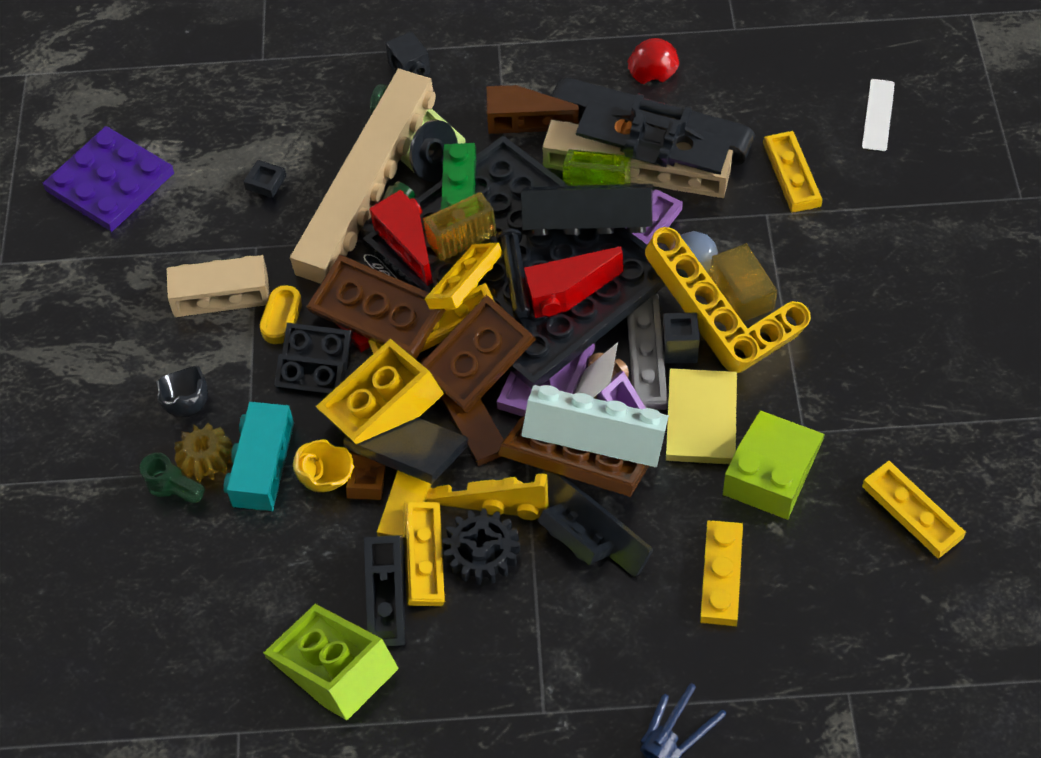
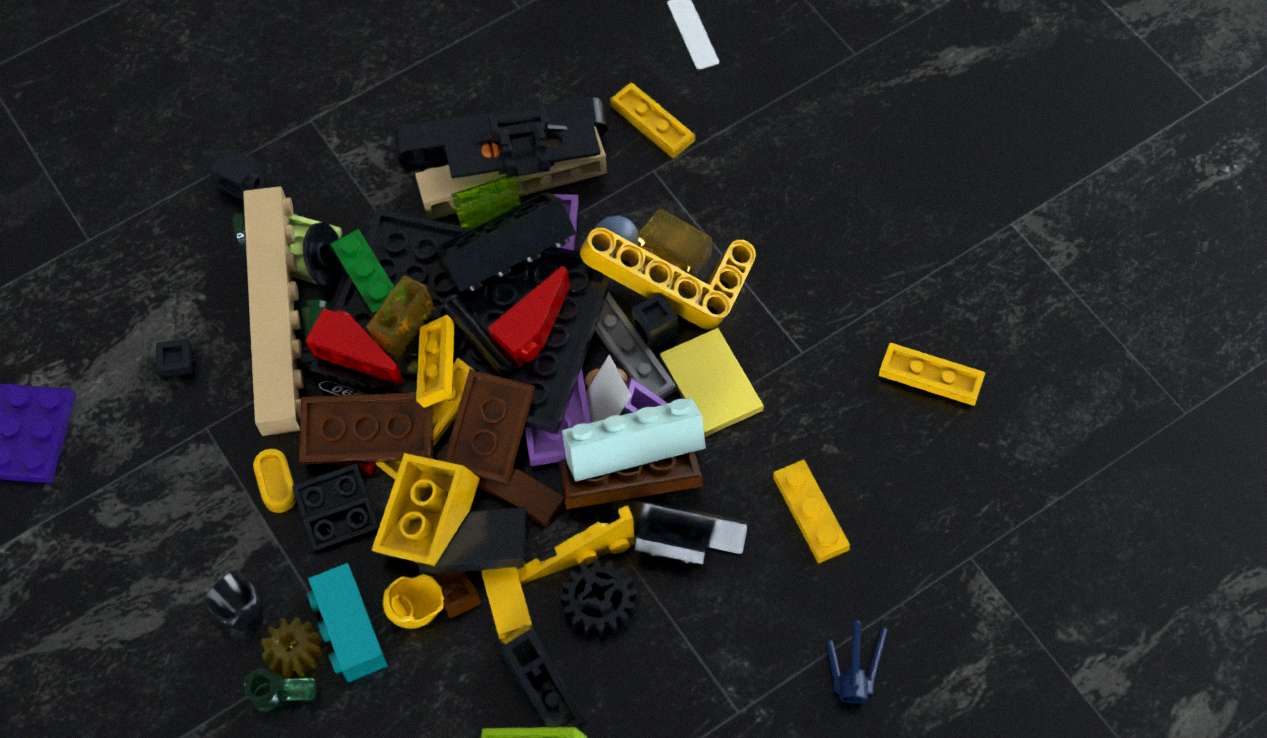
camera: 30 degrees left, 5 degrees up
(217, 286) = (199, 483): tan brick -> none
(423, 554) = (553, 630): yellow tile -> none
(524, 110) = (381, 174): reddish brown slope -> none
(653, 60) = (467, 72): red hair -> none
(772, 464) = (797, 394): lime slope -> none

